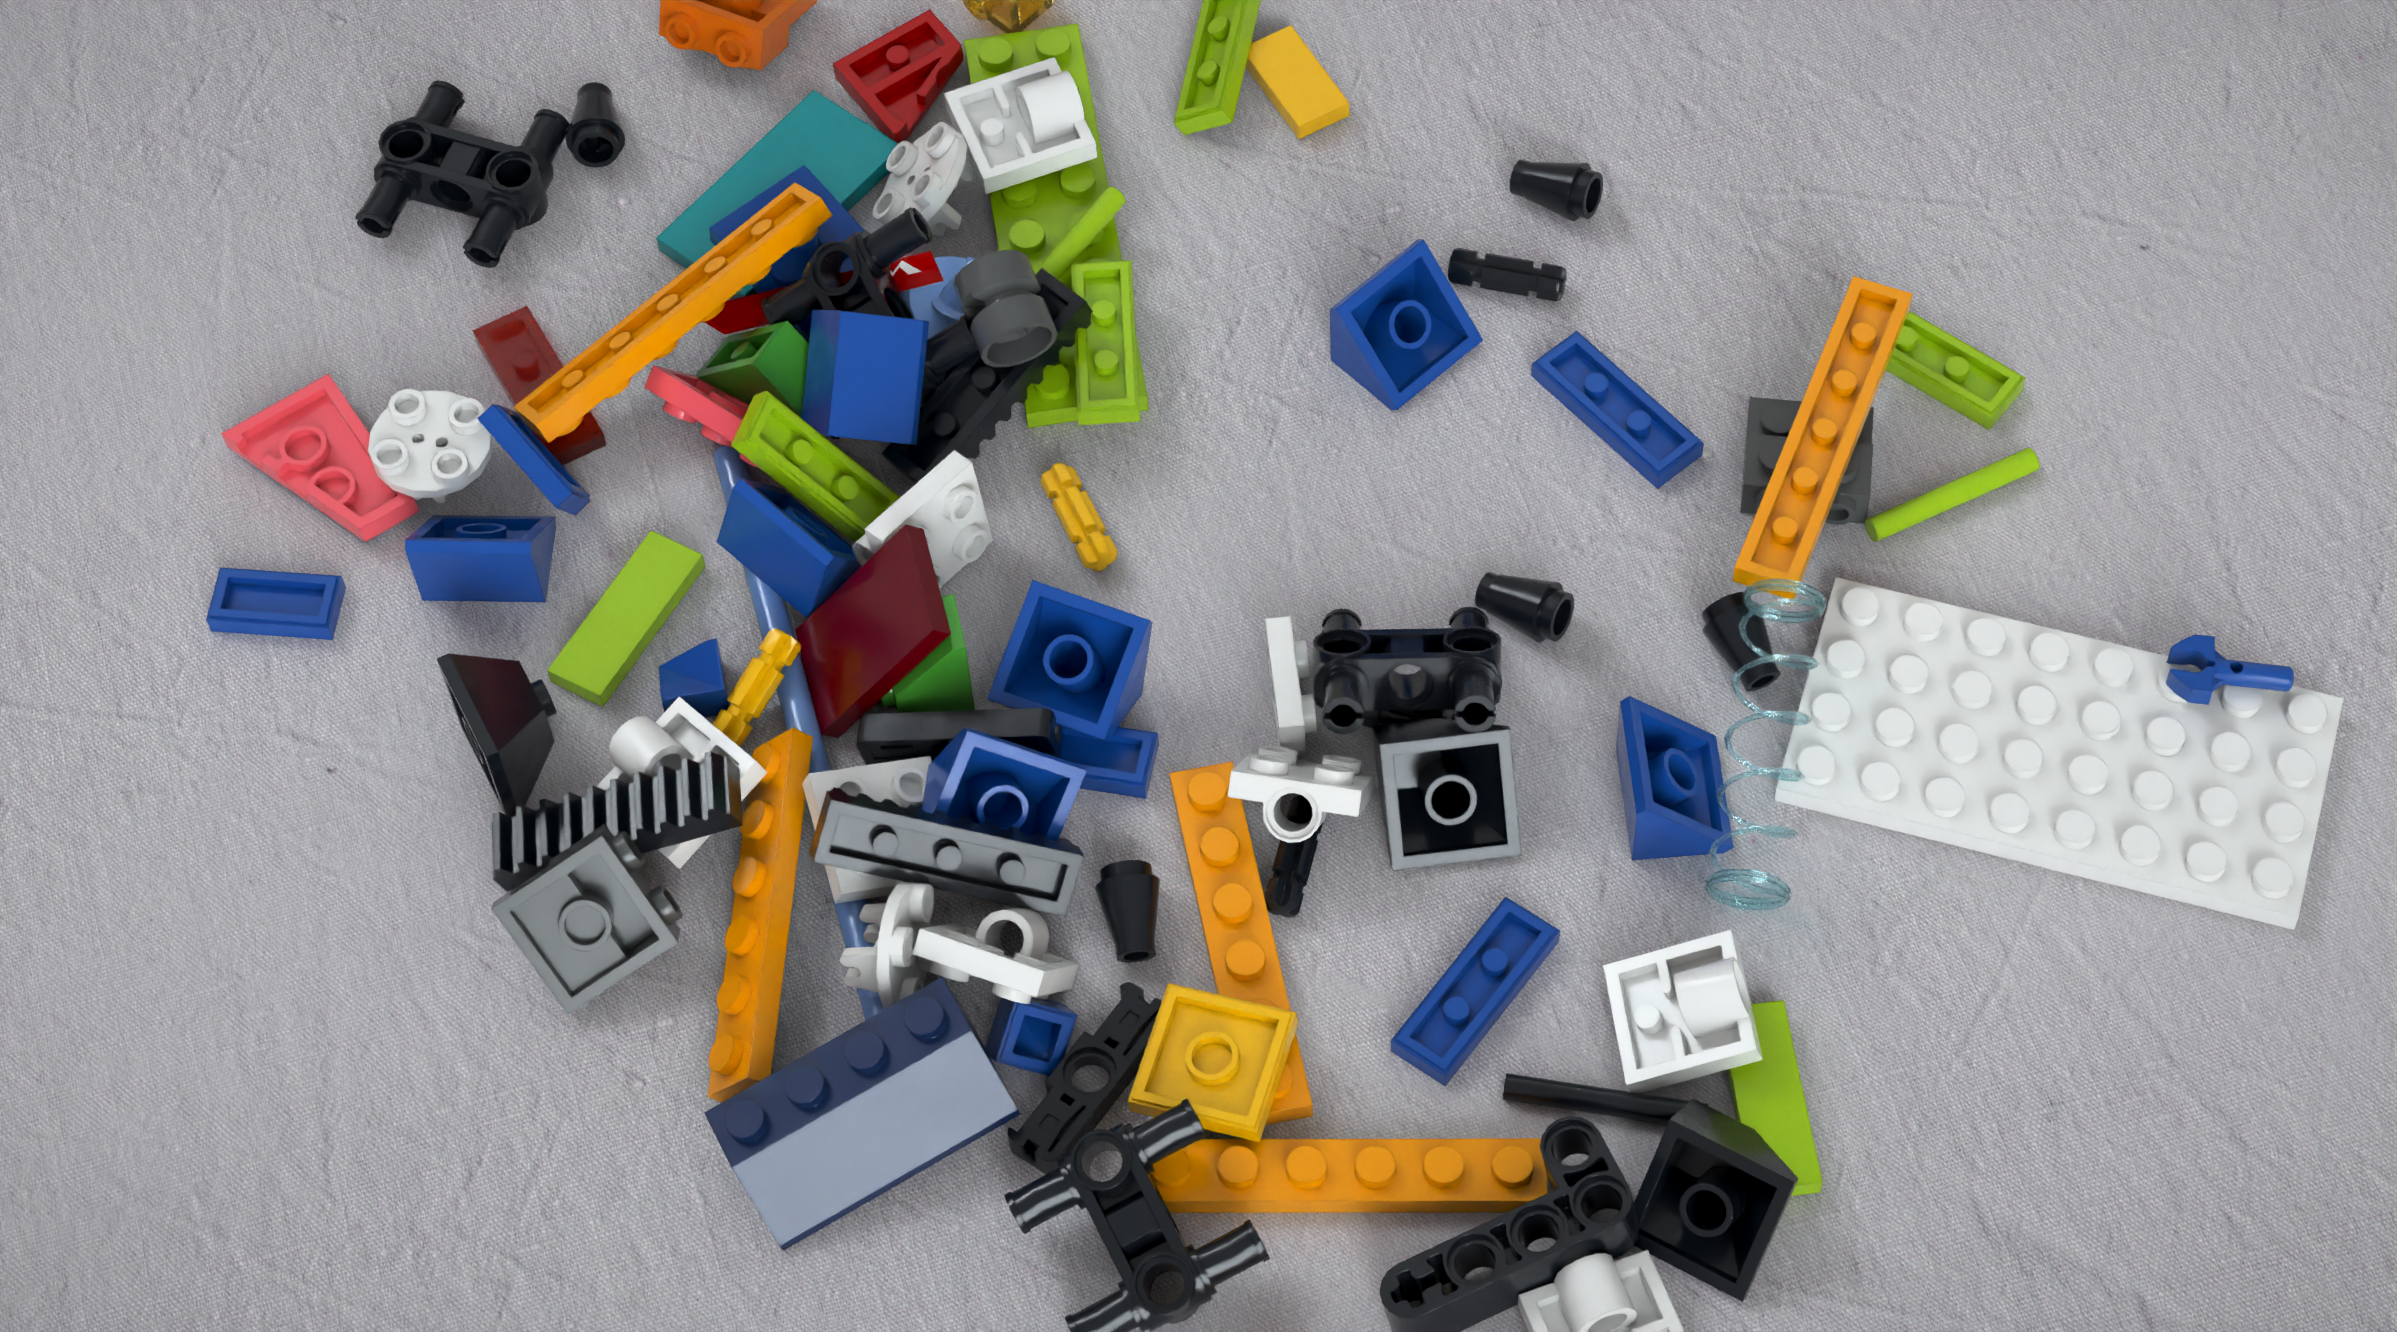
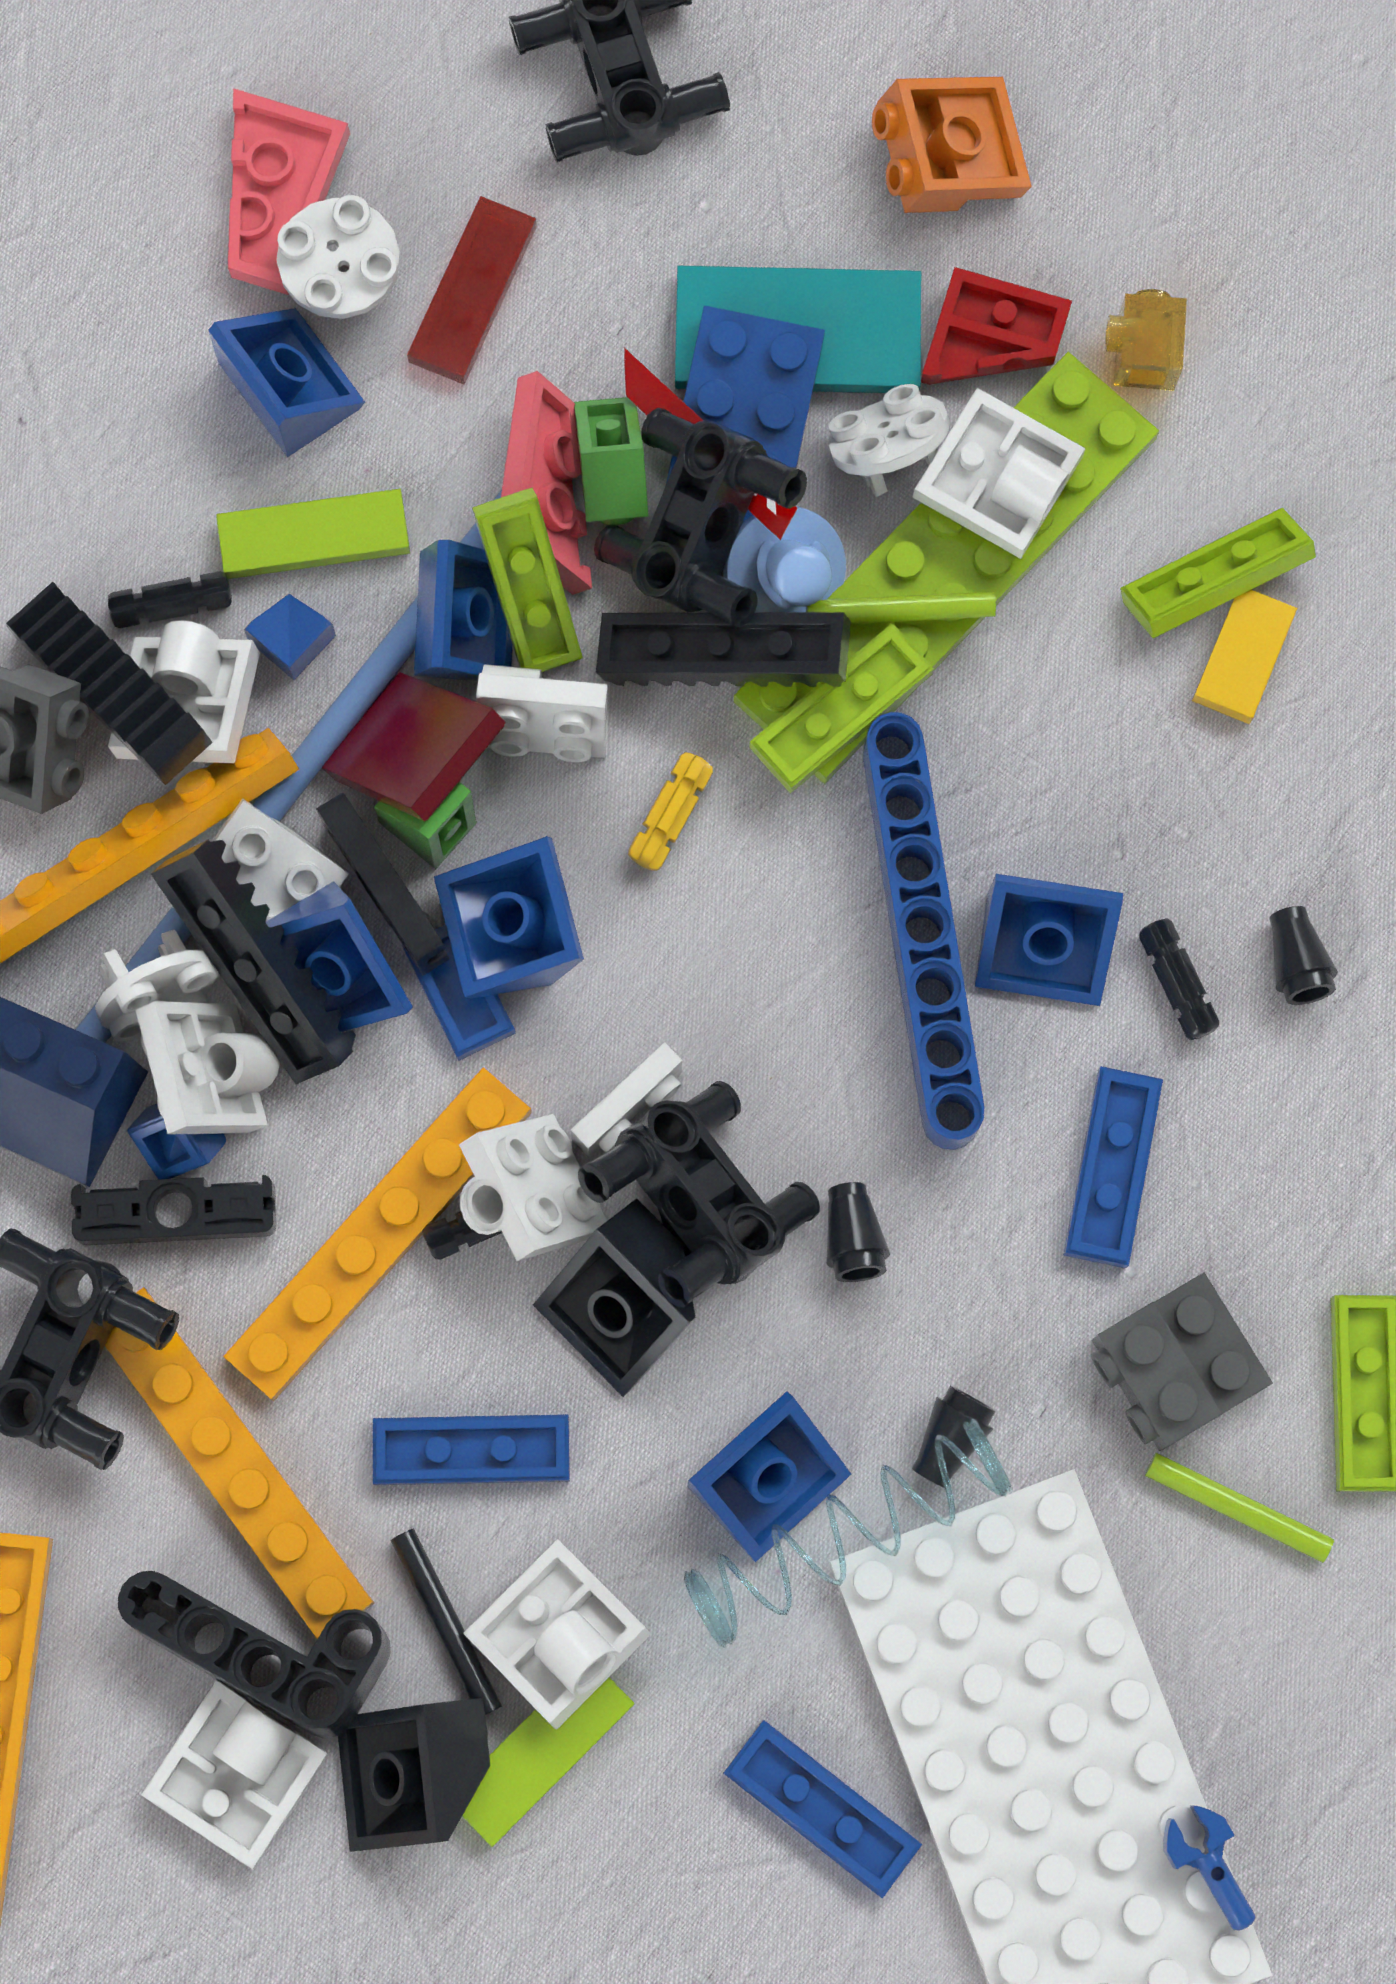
camera: 45 degrees right, 20 degrees up
(276, 603) = (127, 257): blue tile -> none
(502, 722) = (127, 524): black slope -> none
(535, 459) = (385, 349): blue tile -> none
(584, 749) = (169, 599): none -> black axle
(595, 130) = (746, 128): black cone -> none
(674, 310) = (594, 347): light orange plate -> none
(757, 685) = (314, 687): yellow axle -> none
(865, 376) = (634, 553): blue slope -> none
(1005, 313) = (769, 620): dark grey wheel -> none
(1130, 906) = (339, 1129): black cone -> none
(1216, 1055) = (241, 1300): yellow tile -> none
(1345, 428) = (929, 900): none -> blue beam
(1823, 435) = (1181, 1375): light orange plate -> none
(1973, 928) = (822, 1809): none -> blue tile

